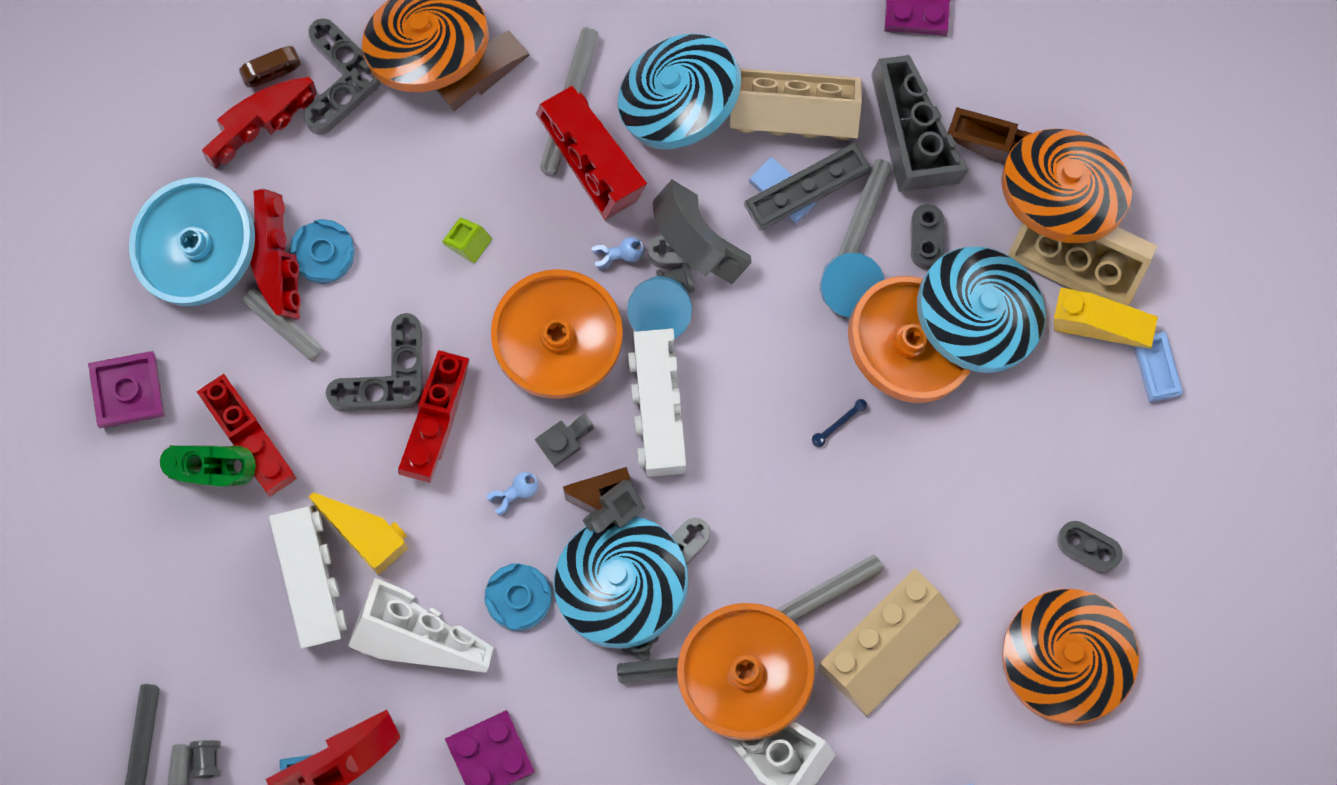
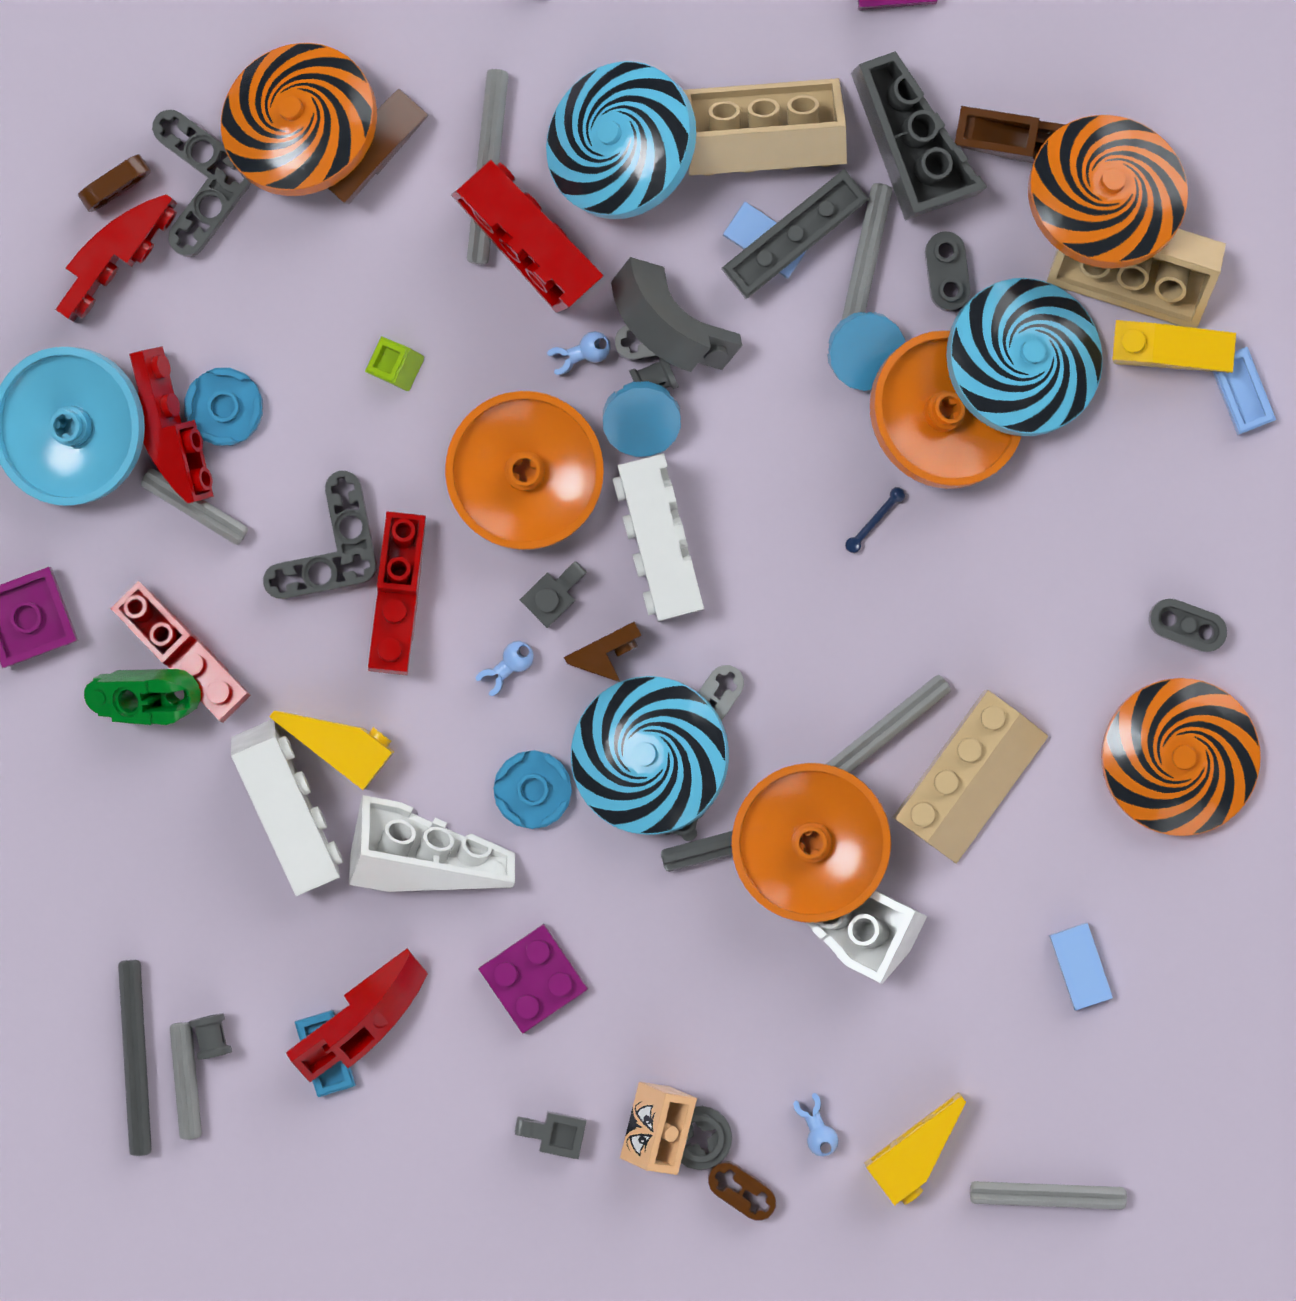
camera: 10 degrees left, 15 degrees up
(618, 505) = (633, 672): dark grey plate -> none

